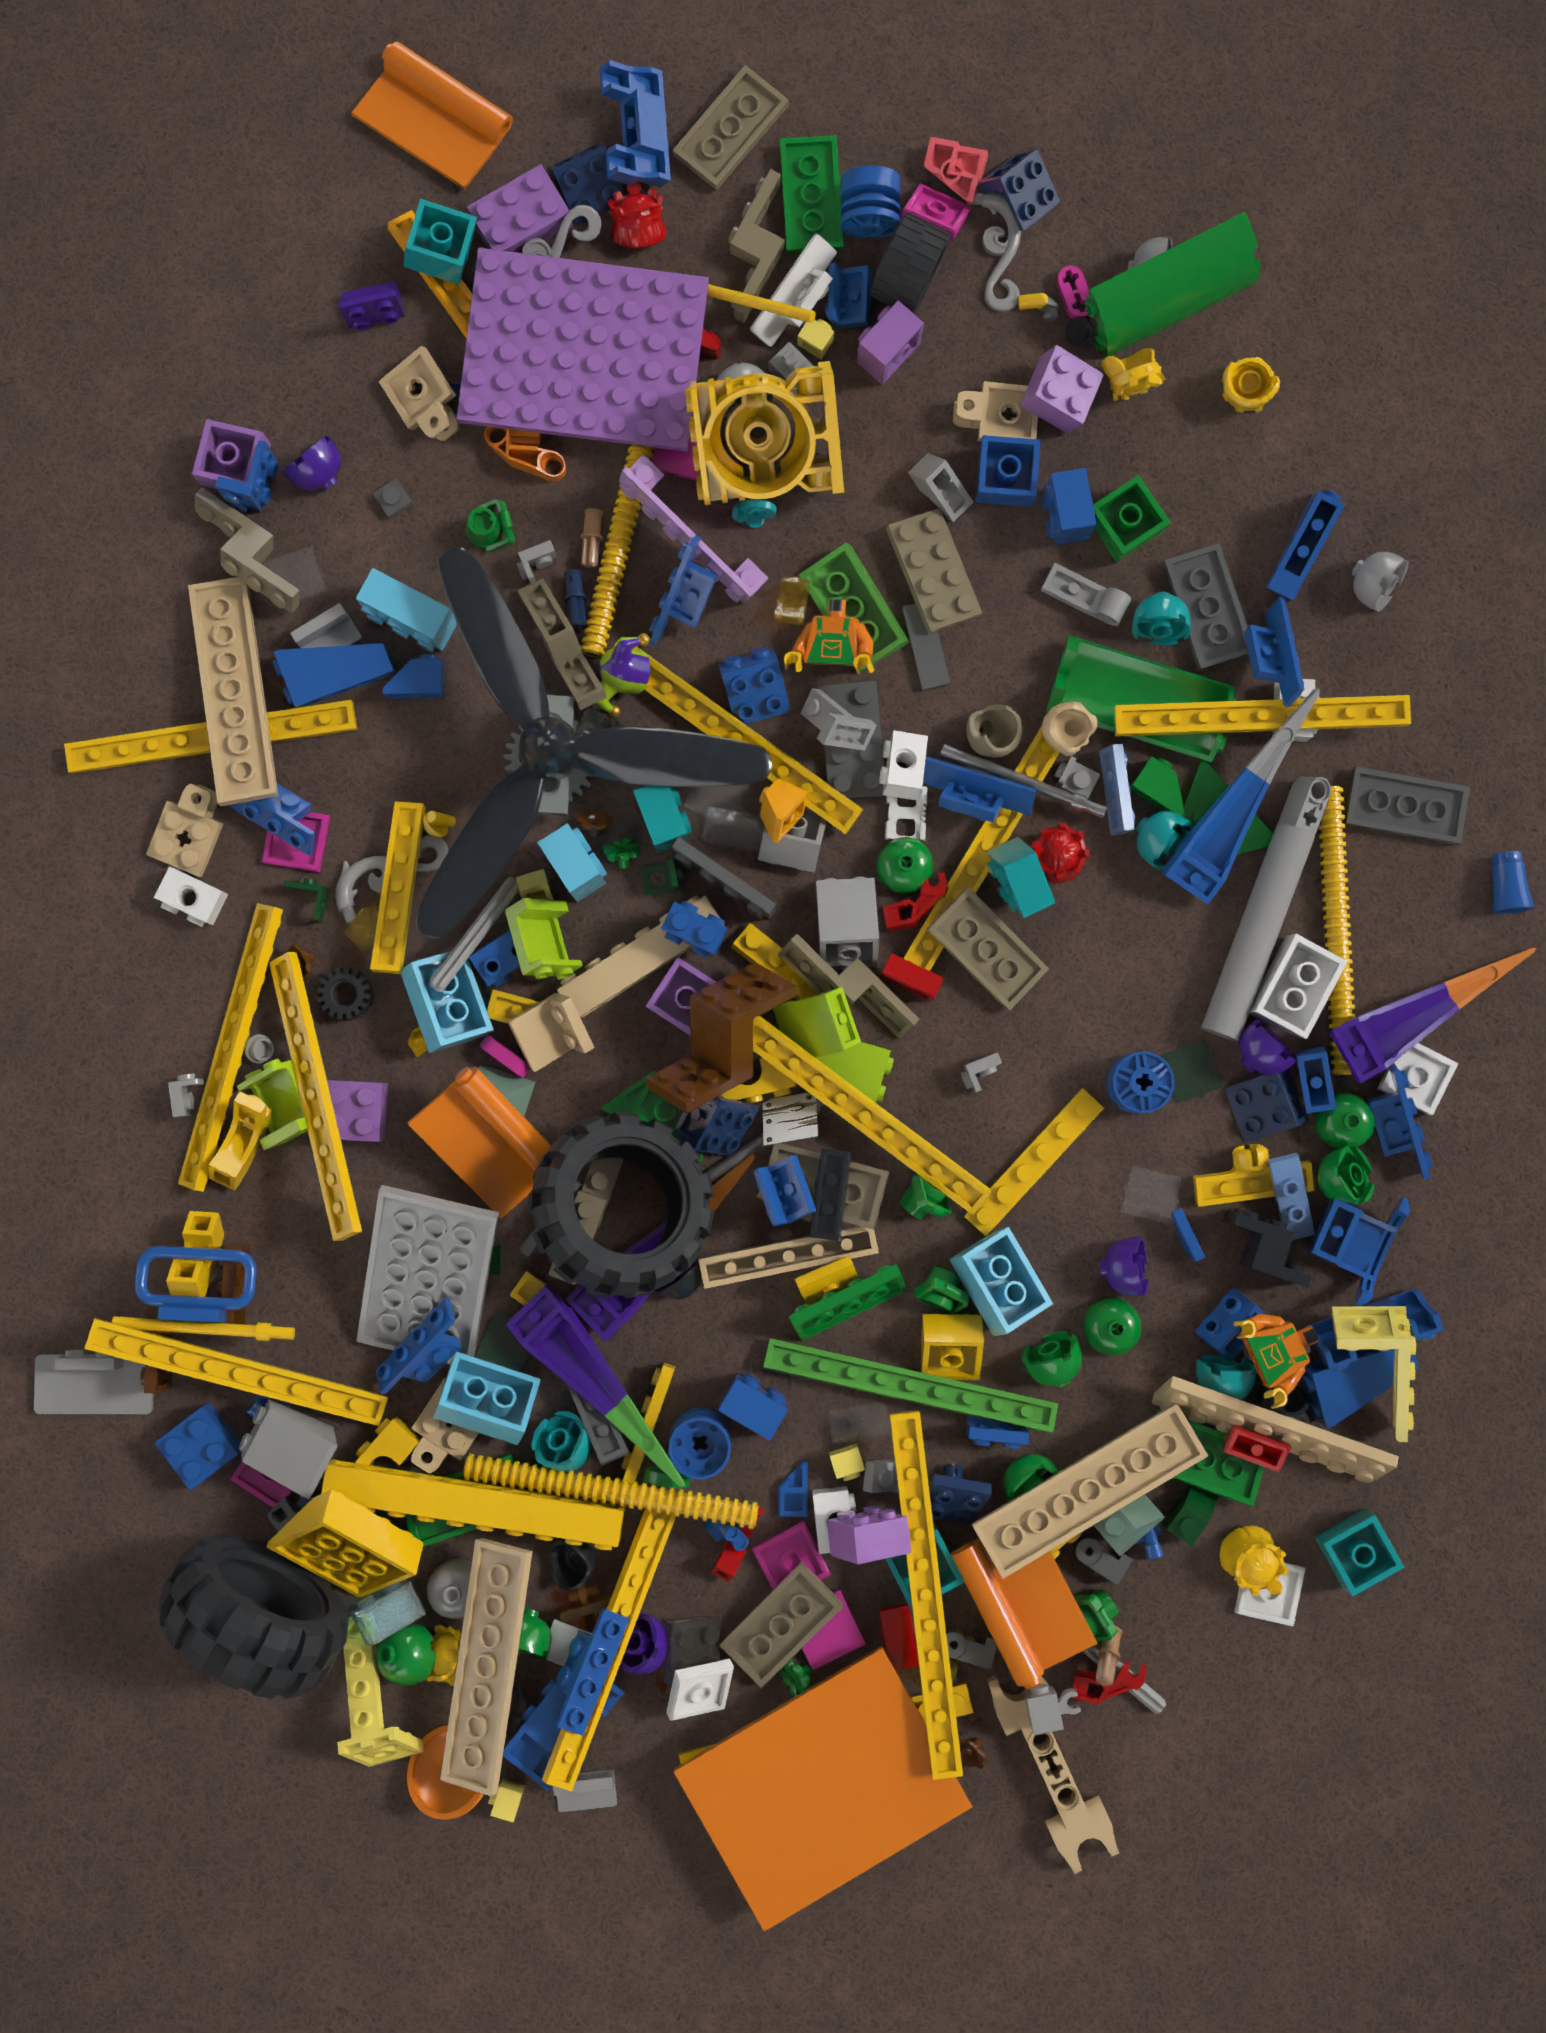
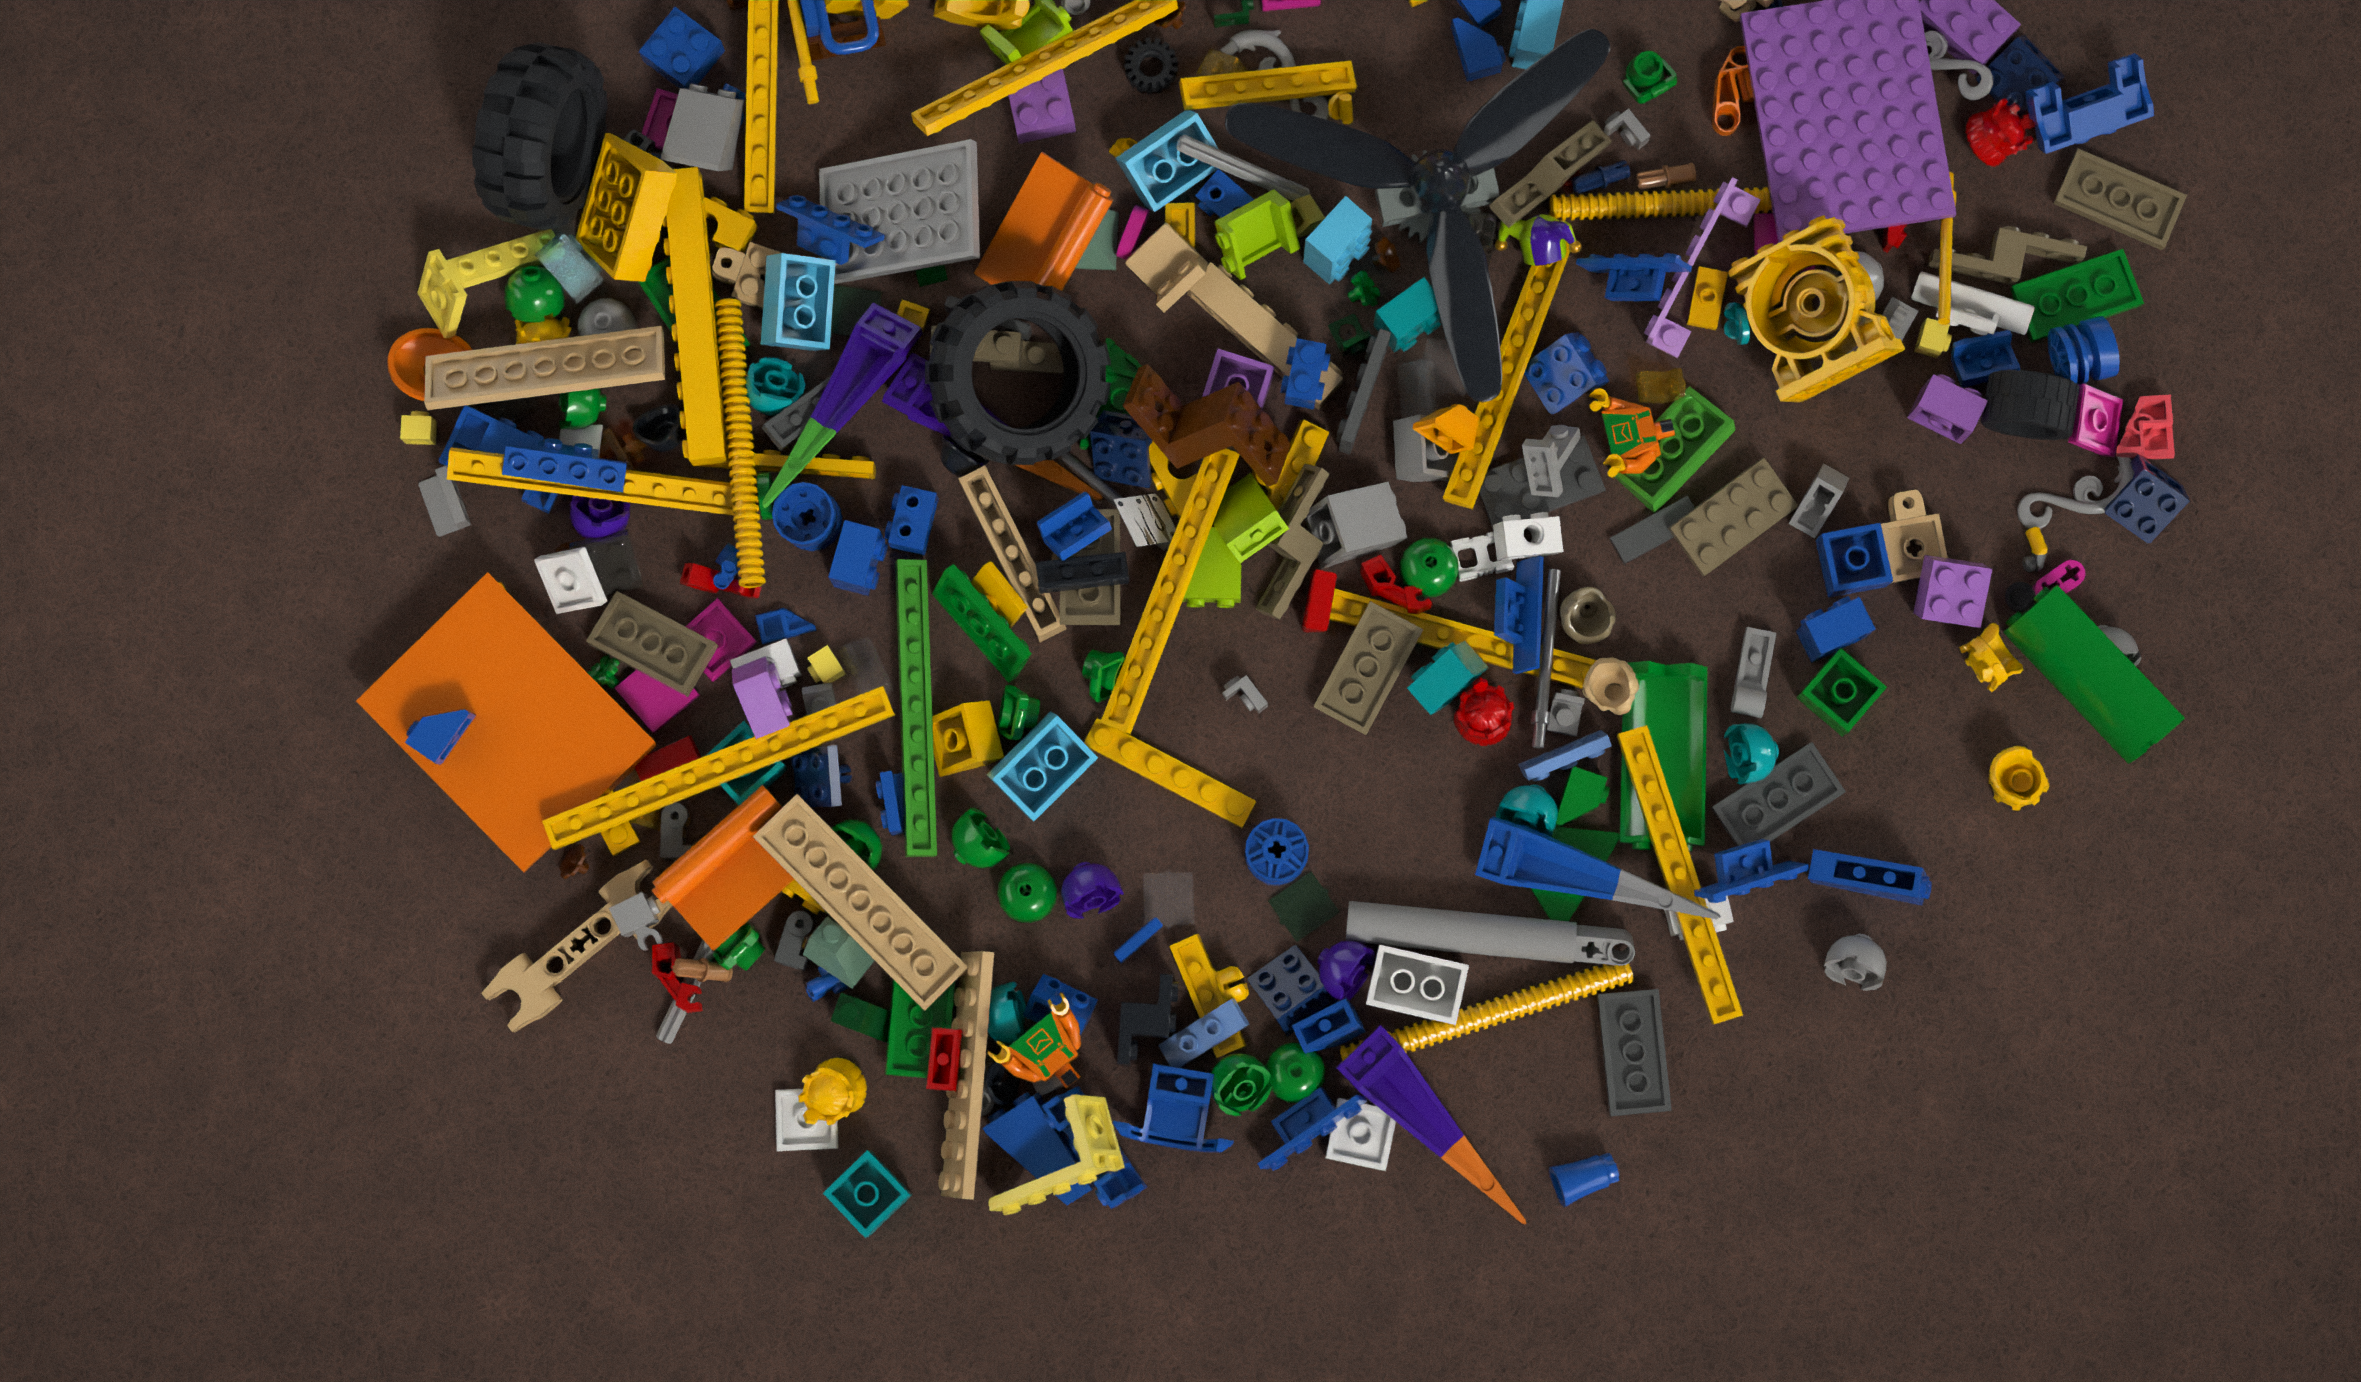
camera: 80 degrees right, 5 degrees down
(720, 534) = (1707, 298): none -> yellow plate
(731, 1337) = (912, 519): none -> blue brick
(821, 1861) = (438, 734): none -> blue slope

